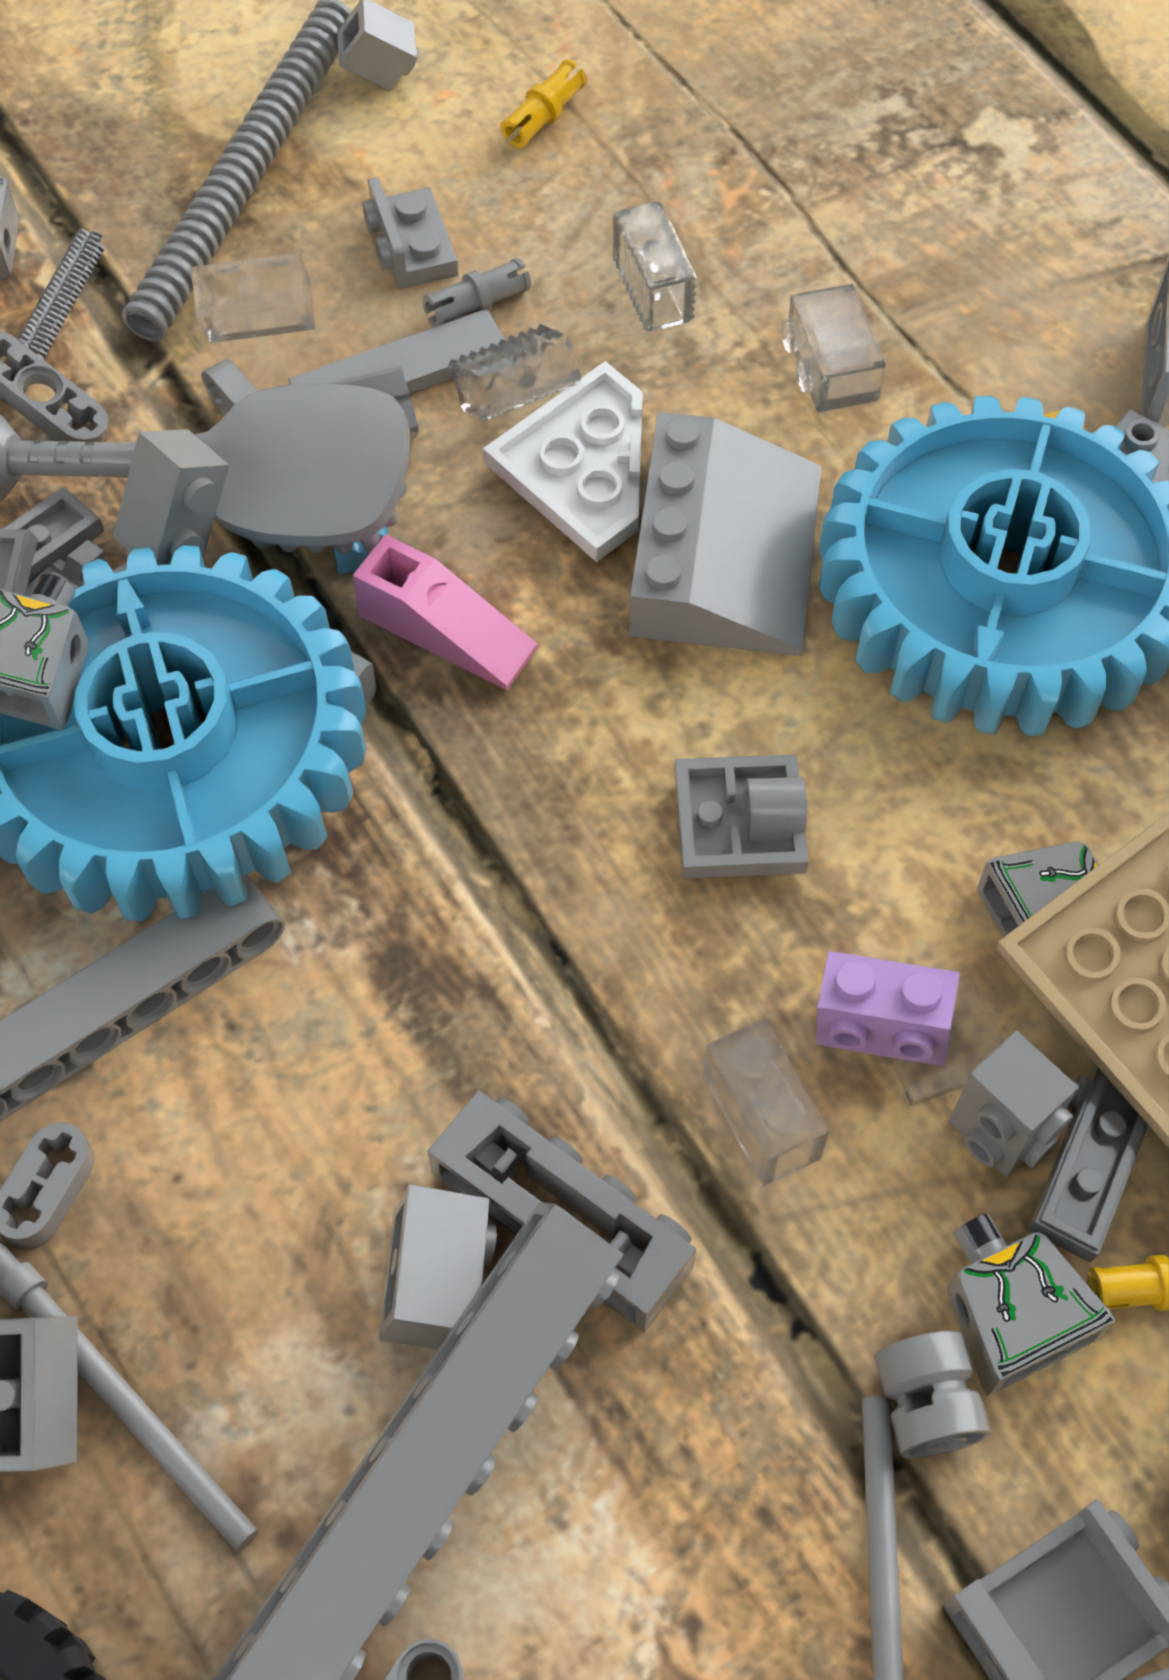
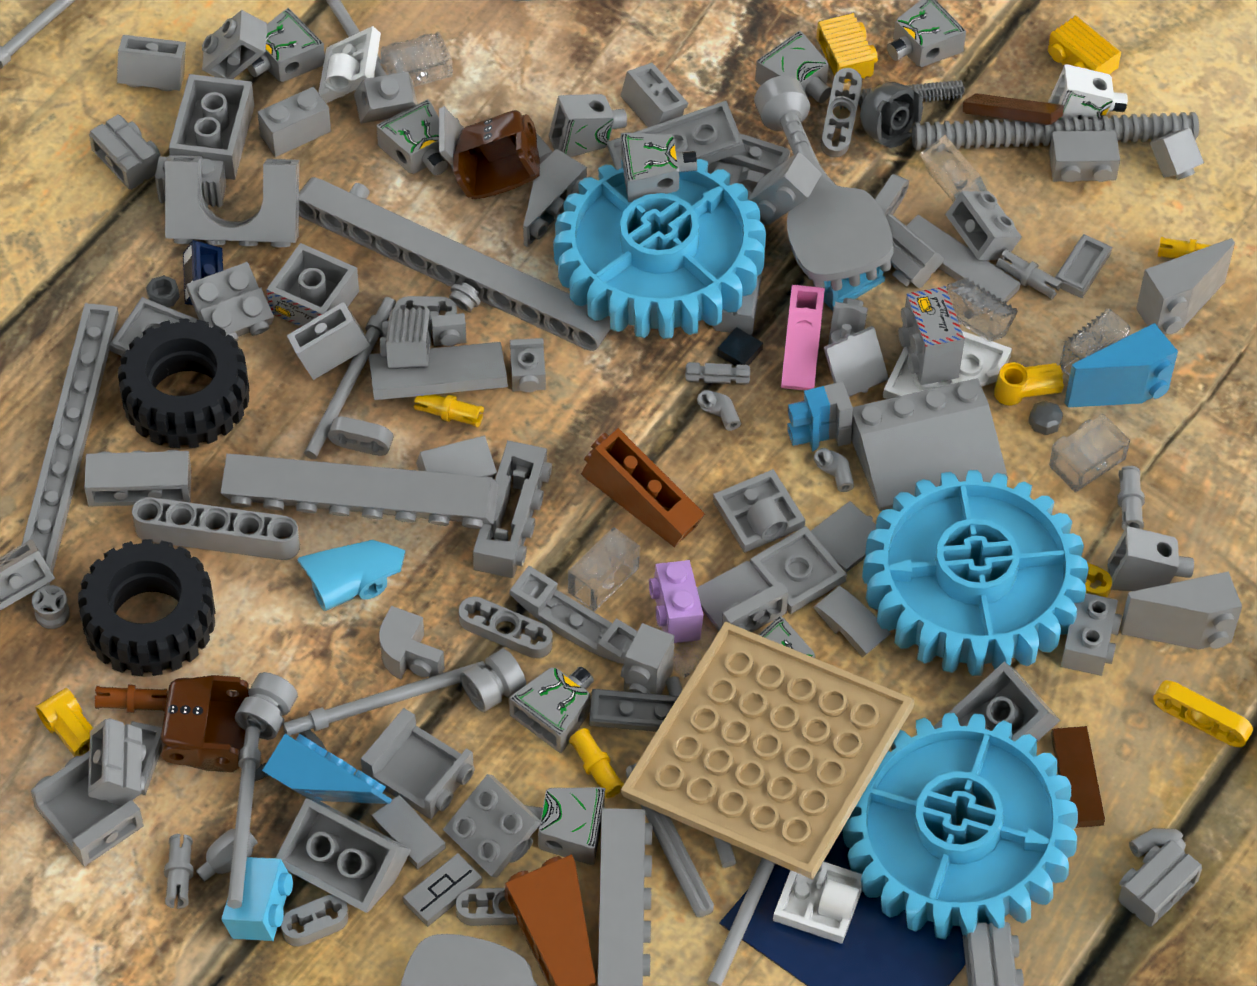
camera: 65 degrees right, 5 degrees down
(52, 1100) = (464, 296): none -> light grey plate
(82, 332) = (890, 113): none -> dark grey cylinder
(99, 1237) = (407, 338): none -> light grey brick
(112, 1158) = (448, 329): none -> light grey plate
(127, 75) = (1083, 47): none -> yellow brick
(181, 185) = (1013, 109): none -> reddish brown tile
(192, 1219) = (448, 371): none -> light grey tile
(210, 101) = (1086, 93): none -> white torso
(261, 1422) = (360, 436): none -> light grey beam
(272, 1075) = (527, 365): none -> light grey brick
(281, 1230) = (450, 409): none -> yellow pin
(310, 147) = (1084, 156): none -> light grey brick
(366, 301) = (983, 224): none -> light grey brick
(401, 716) = (740, 348): none -> black tile
(410, 235) = (1053, 227): light grey bracket -> none
(433, 767) = (717, 373): none -> light grey axle
(468, 539) = (847, 318): none -> light grey hips
(491, 229) = (1083, 265): none -> light grey tile
(502, 788) = (720, 406): none -> light grey arm
(535, 559) = (857, 361): none -> light grey piece
(562, 426) = (931, 336): none -> light grey brick
(570, 1572) = (351, 571): none -> medium azure panel
(620, 642) = (821, 416): none -> dark azure hips
(623, 971) = (640, 487): none -> dark orange slope
(625, 126) = (1182, 286): none -> light grey slope
(671, 367) = (1019, 382): none -> yellow piece
(700, 673) = (837, 466): none -> light grey arm
(729, 232) = (1124, 371): none -> dark azure slope
(738, 377) = (1045, 417): none -> dark grey tile
(777, 1544) = (402, 646): none -> light grey brick
(828, 1278) = (510, 640): none -> light grey beam
(834, 717) = (845, 535): none -> light grey piece
(847, 1192) = (569, 618): none -> light grey slope
(881, 806) = (801, 566): none -> light grey plate
(917, 908) = (742, 598): none -> light grey bracket
(934, 335) = (1131, 497): none -> light grey pin
(1005, 768) = (853, 619): none -> light grey slope
(1072, 340) = (1146, 561): none -> light grey torso

